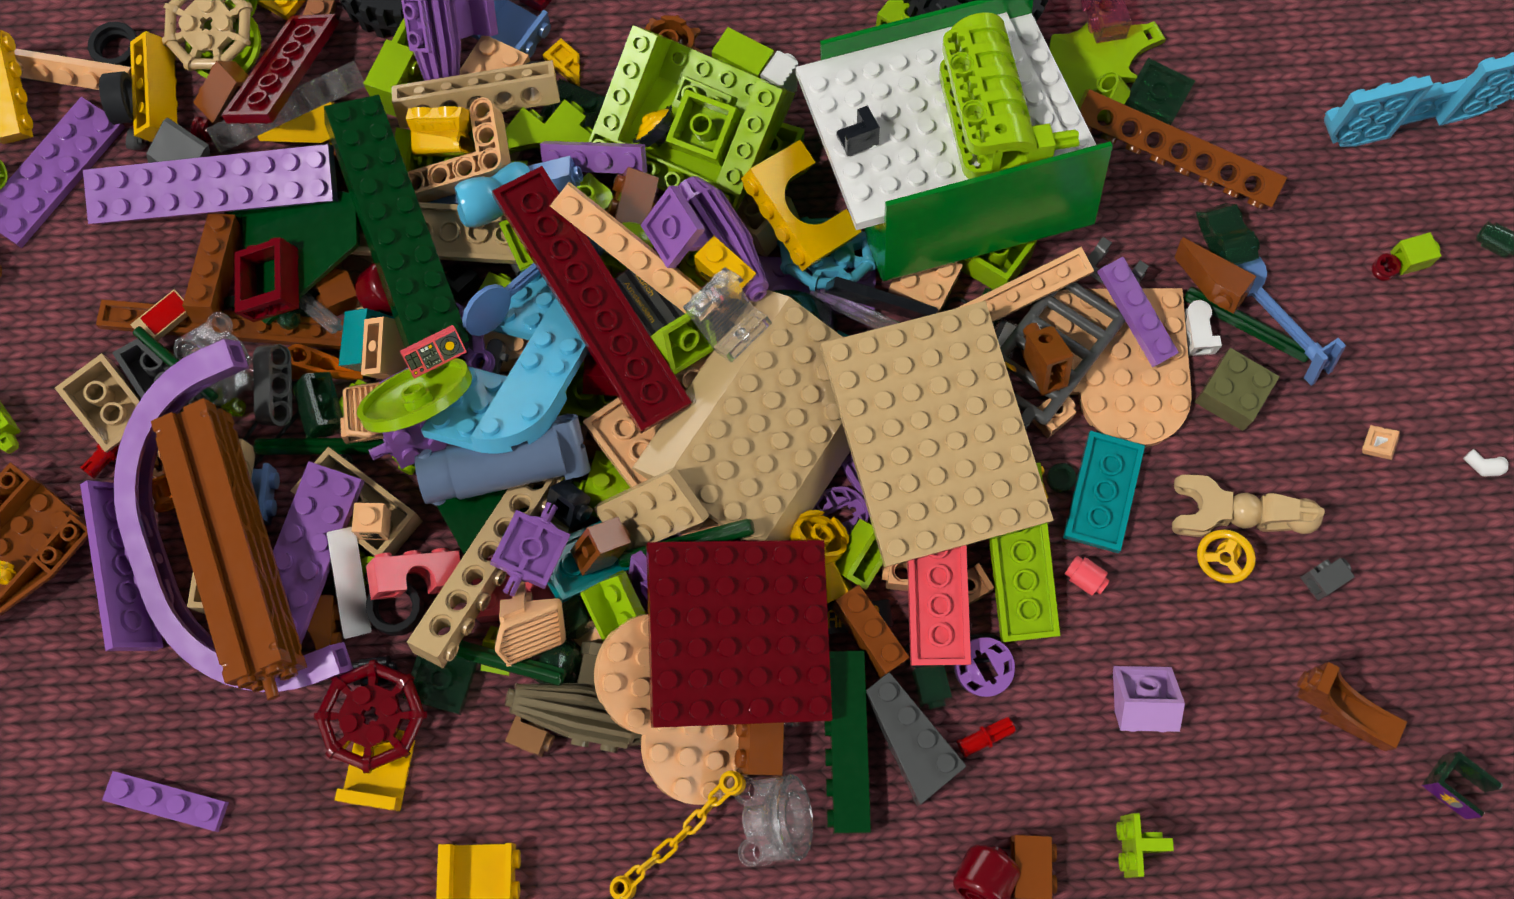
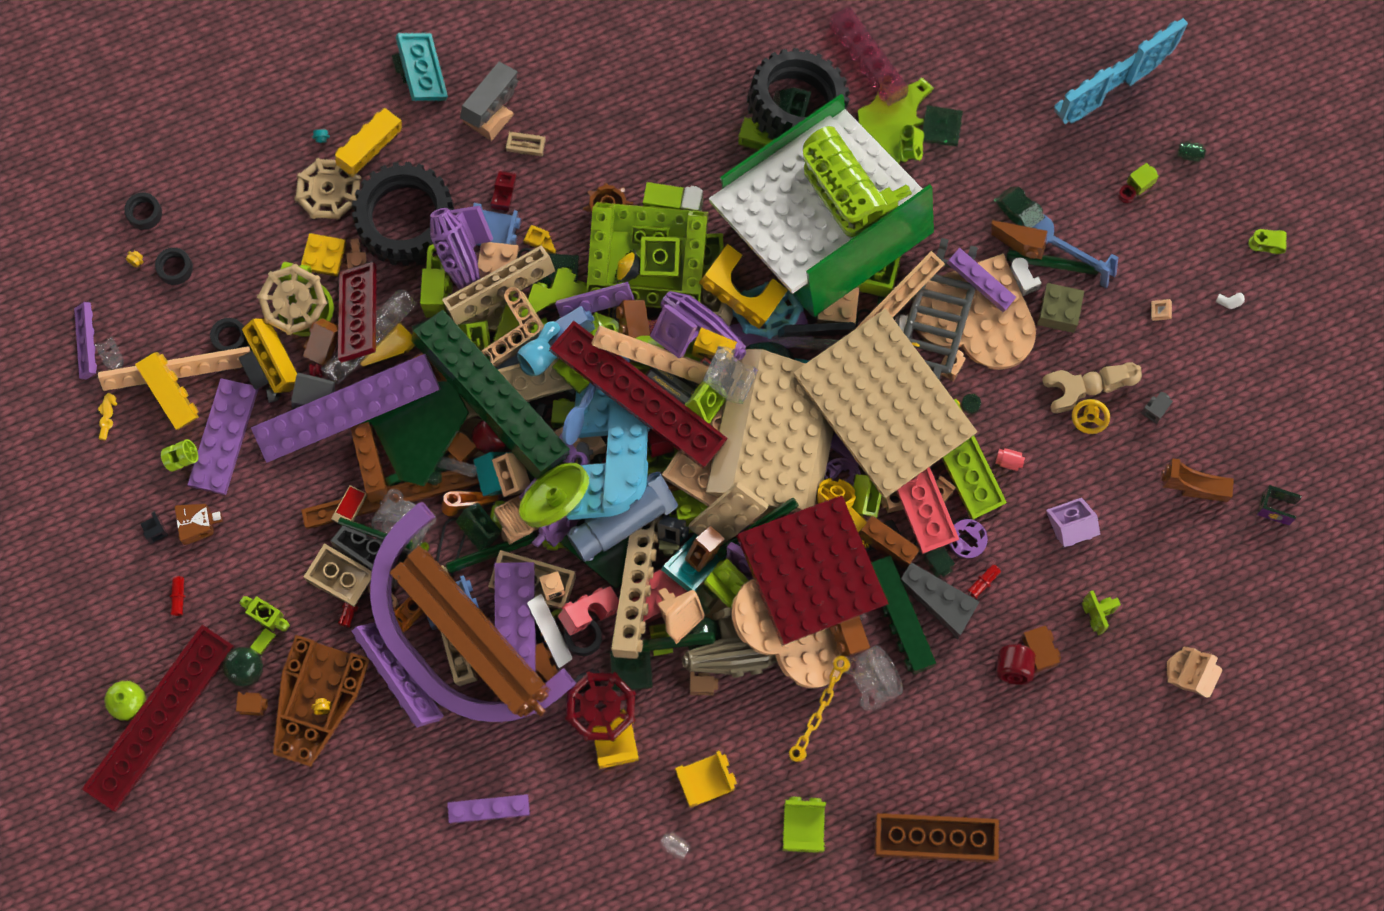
camera: 20 degrees left, 0 degrees up
(280, 396) = (445, 524): dark grey beam -> none
(286, 292) = (423, 472): dark red window -> none
(433, 351) = (552, 464): tile -> none
(440, 131) = (490, 319): yellow piece -> none
(530, 549) = (662, 566): medium lavender plate -> none
(860, 135) = (771, 231): black panel -> none
(1047, 358) = (936, 330): dark orange torso -> none
(1104, 492) = (1001, 402): teal plate -> none
(1268, 182) = (1033, 164): dark orange brick -> none

